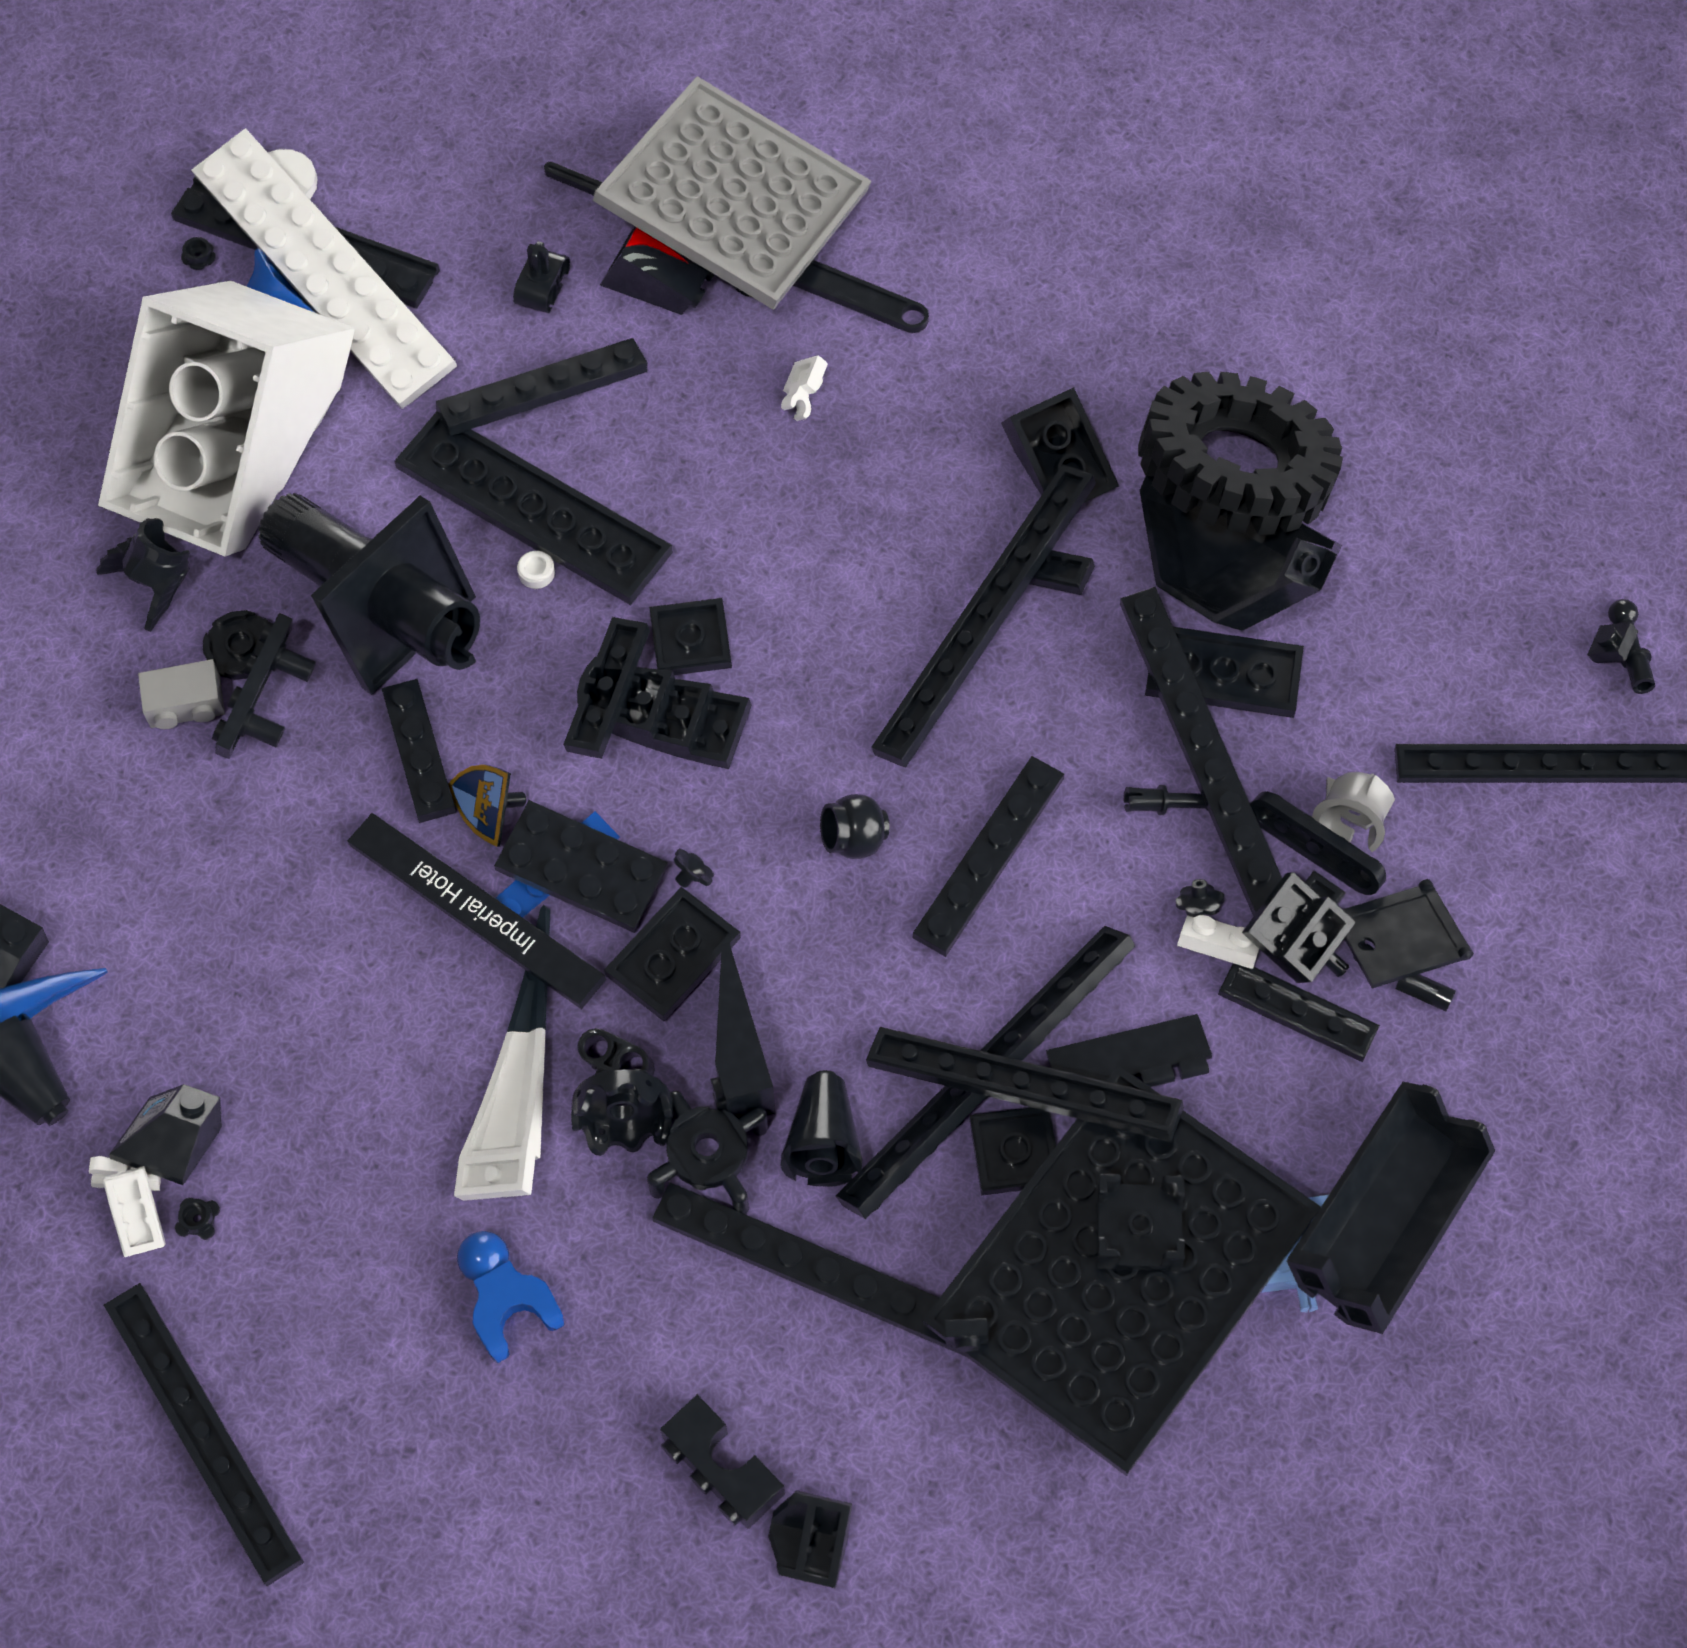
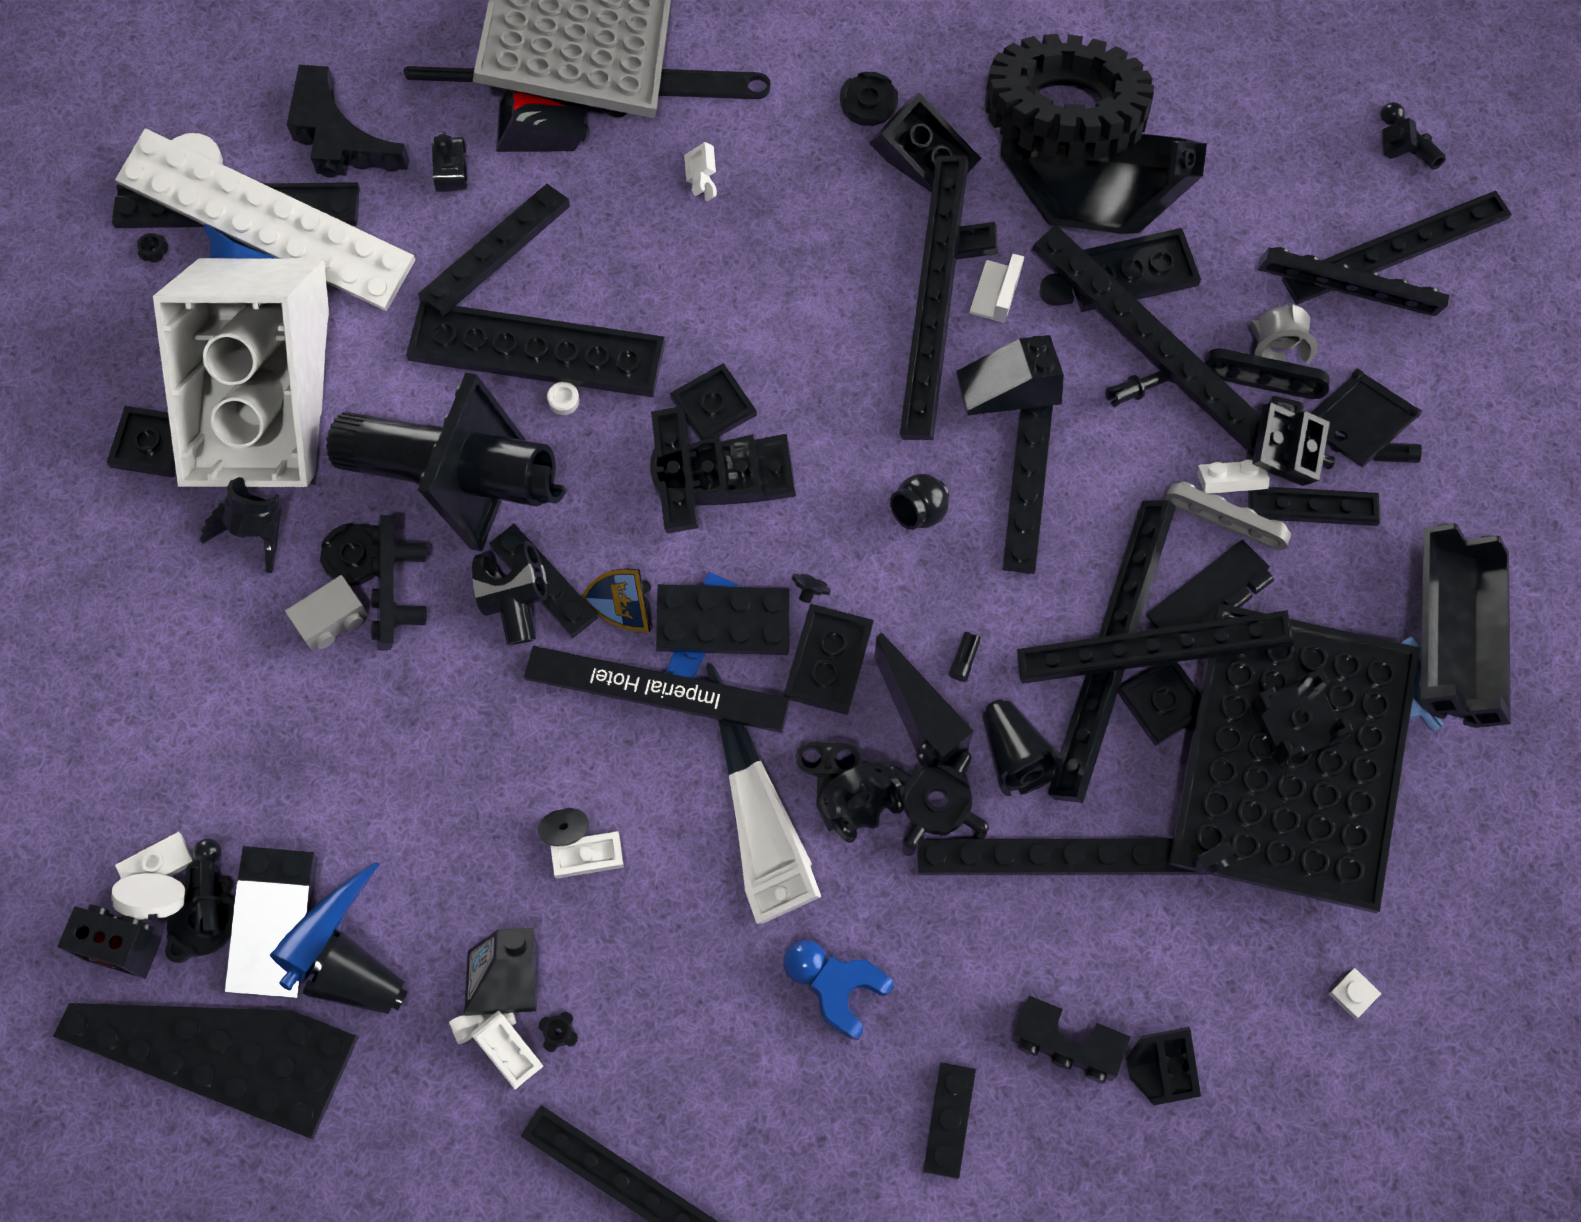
camera: 25 degrees left, 5 degrees up
(84, 448) = (143, 443): none -> black plate
(308, 1011) = (563, 827): none -> black piece
(317, 1050) = (588, 855): none -> white plate
(376, 746) = (511, 593): none -> black connector
(434, 214) = (335, 140): none -> black arch
(551, 1491) = (949, 1120): none -> black plate
(821, 1012) = (964, 658): none -> black piece
(1025, 735) = (1013, 378): none -> black slope
(1029, 385) = (865, 106): none -> black tile
(1063, 634) = (997, 289): none -> white panel
(1063, 1556) = (1354, 993): none -> white plate
(1127, 661) = (1056, 290): none -> black tile
(1182, 970) = (1229, 516): none -> light grey plate
(1199, 899) = (1202, 452): black plant -> none
(1477, 786) = (1353, 282): none -> black plate

